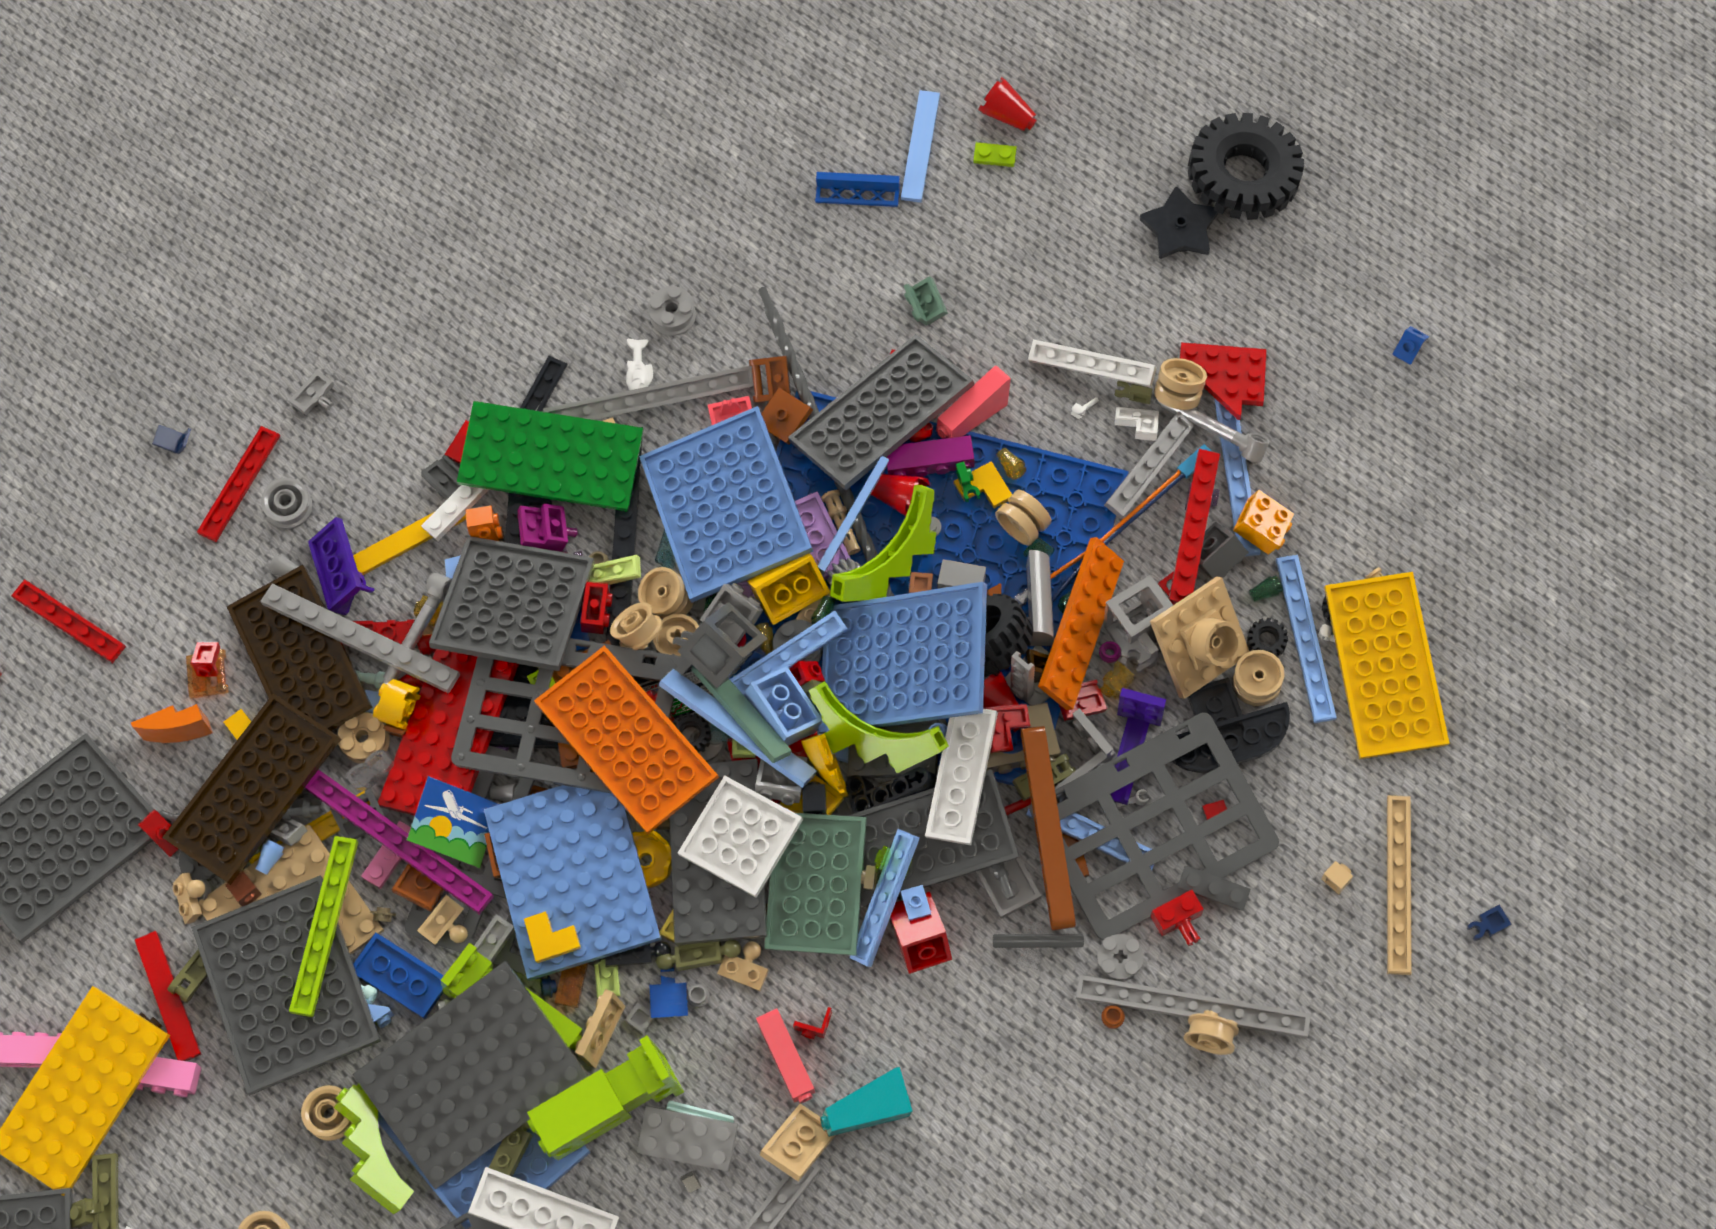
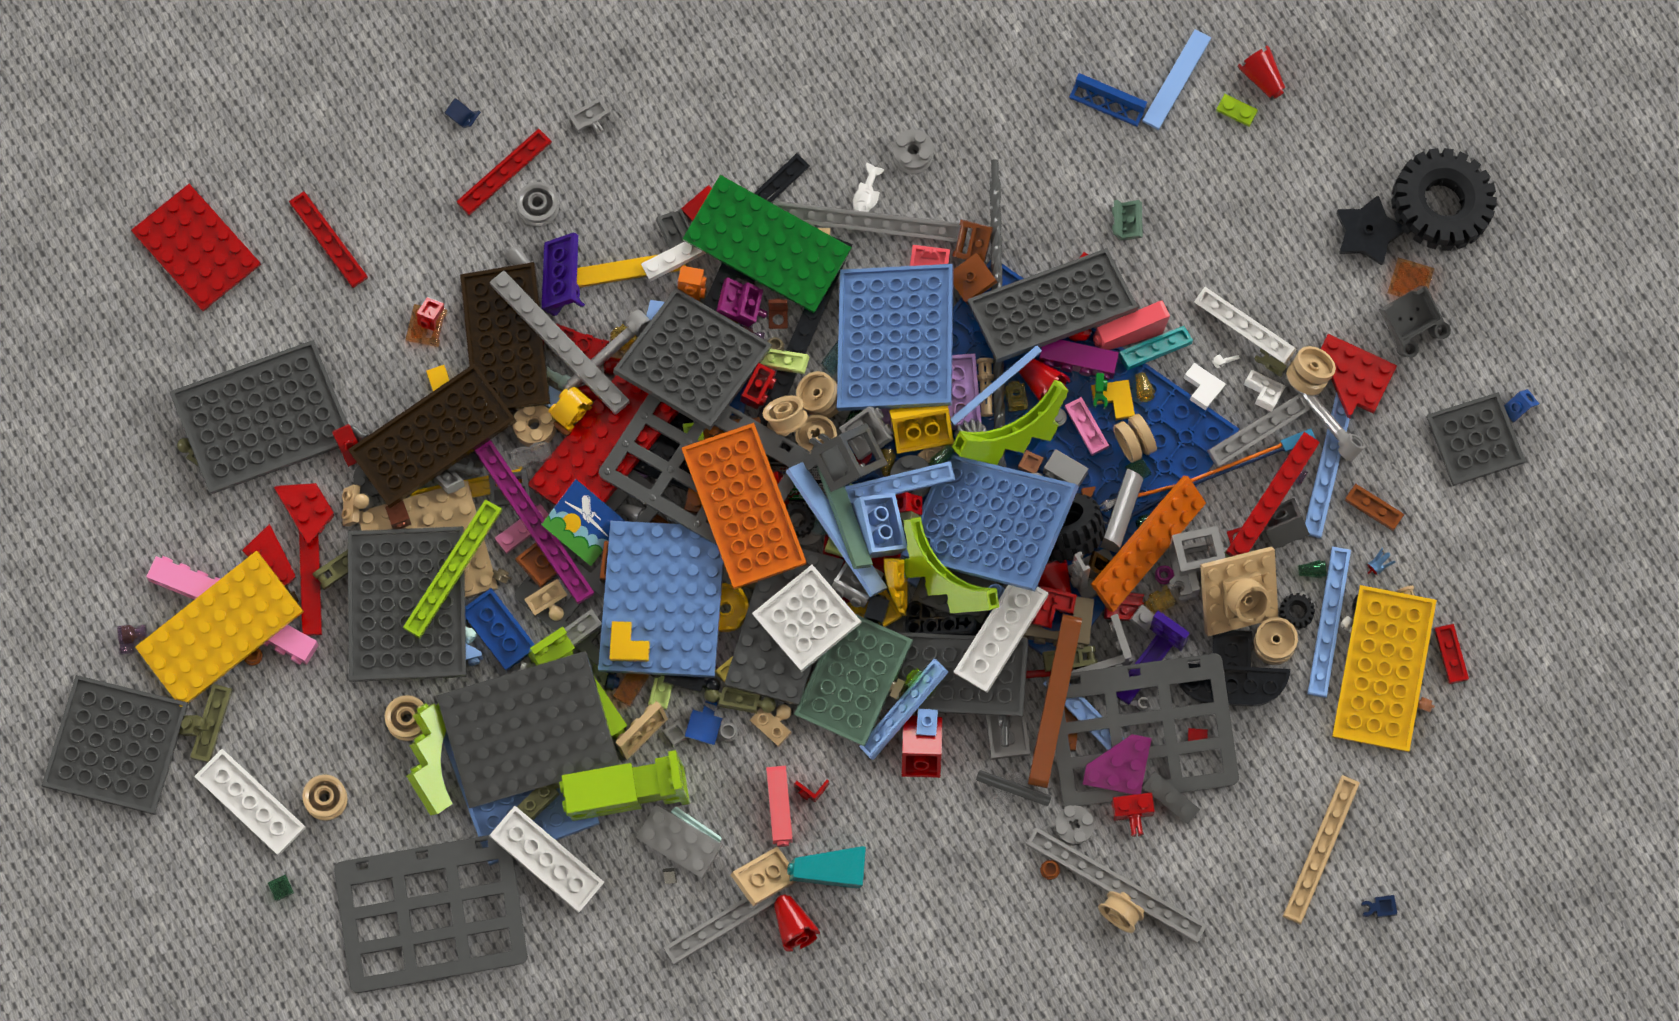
camera: 15 degrees right, 5 degrees up
(115, 984) = (272, 552): none -> red wing
(132, 1108) = (254, 658): none -> dark orange plate
(137, 919) = (306, 508): none -> red wing
(173, 726) = (385, 360): orange slope -> none
(269, 855) = (428, 495): light blue cone -> none
(586, 519) = (776, 307): none -> copper bracket
(851, 1184) = (794, 924): none -> red cone
(878, 527) = (1019, 402): none -> clear yellow brick
(966, 525) = (1086, 426): none -> bright pink plate
(1006, 419) = (1155, 347): none -> teal plate
(1078, 441) = (1207, 386): none -> white tile
(1106, 705) = (1142, 618): none -> light grey plate
(1146, 874) = (1120, 767): none -> magenta plate
(1244, 260) = (1409, 276): none -> clear orange plate
(1262, 292) = (1411, 316): none -> dark grey piece
(1264, 522) = (1332, 513): light orange brick -> none
(1305, 501) = (1374, 507): none -> dark orange plate
(1330, 560) = (1376, 564): none -> flat silver piece
(1337, 877) = (1273, 825): tan plate -> none
(1379, 394) = (1475, 439): none -> dark grey plate
(1445, 687) = (1425, 704): none -> nougat plate
(1449, 624) = (1451, 654): none -> red plate

